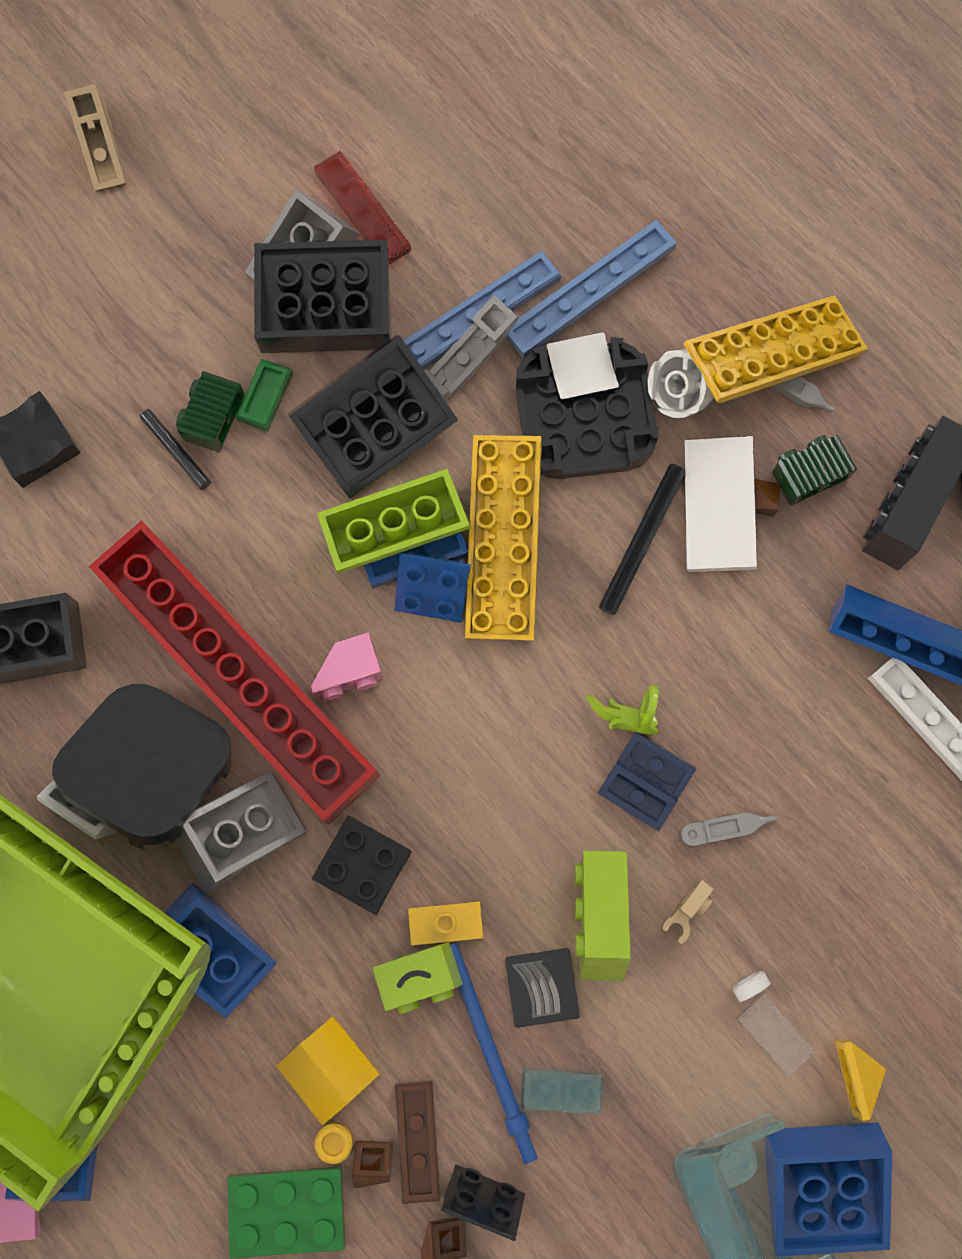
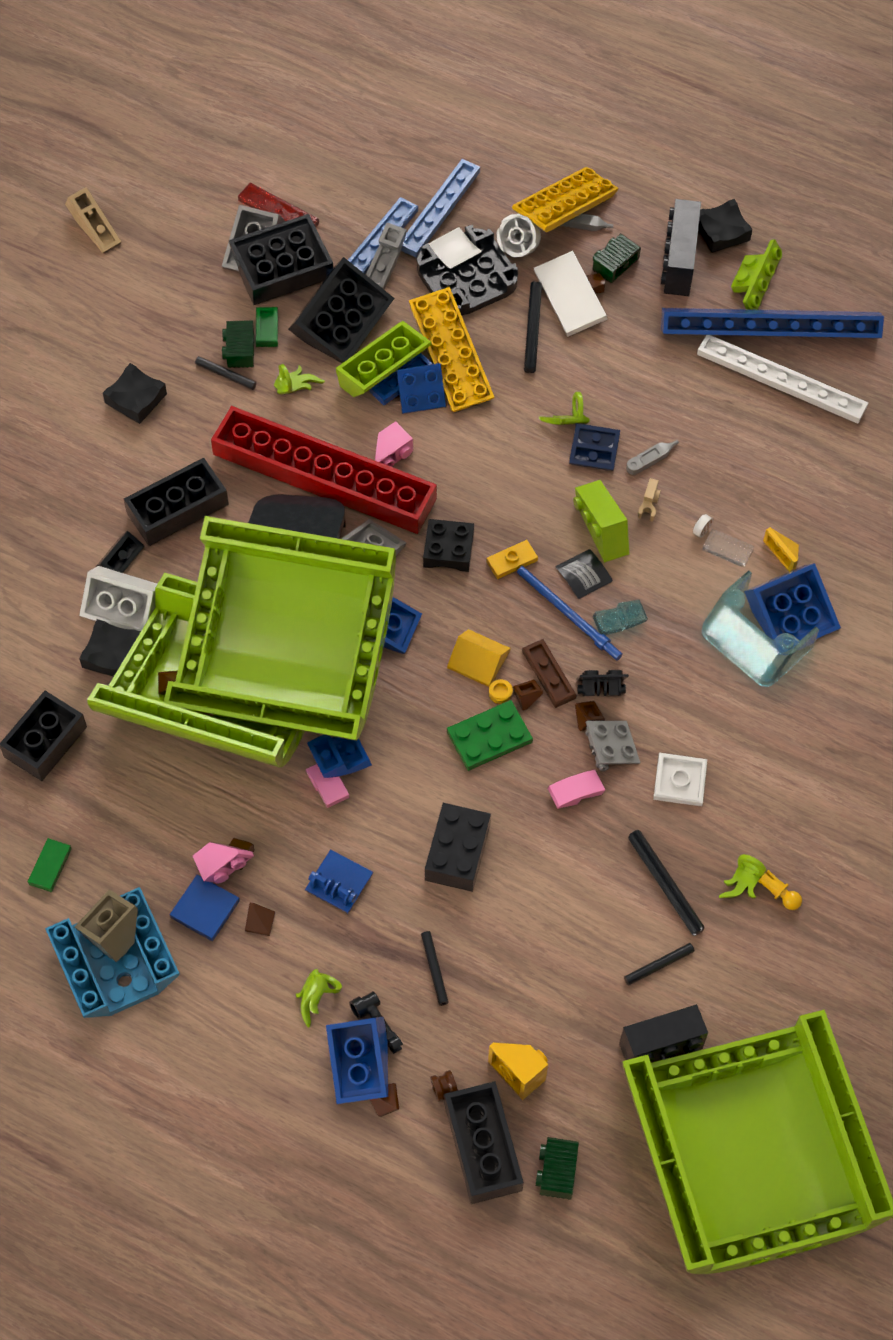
camera: 25 degrees left, 15 degrees down
(259, 499) = (294, 381): none -> lime piece
(417, 977) = (509, 585): lime brick -> none

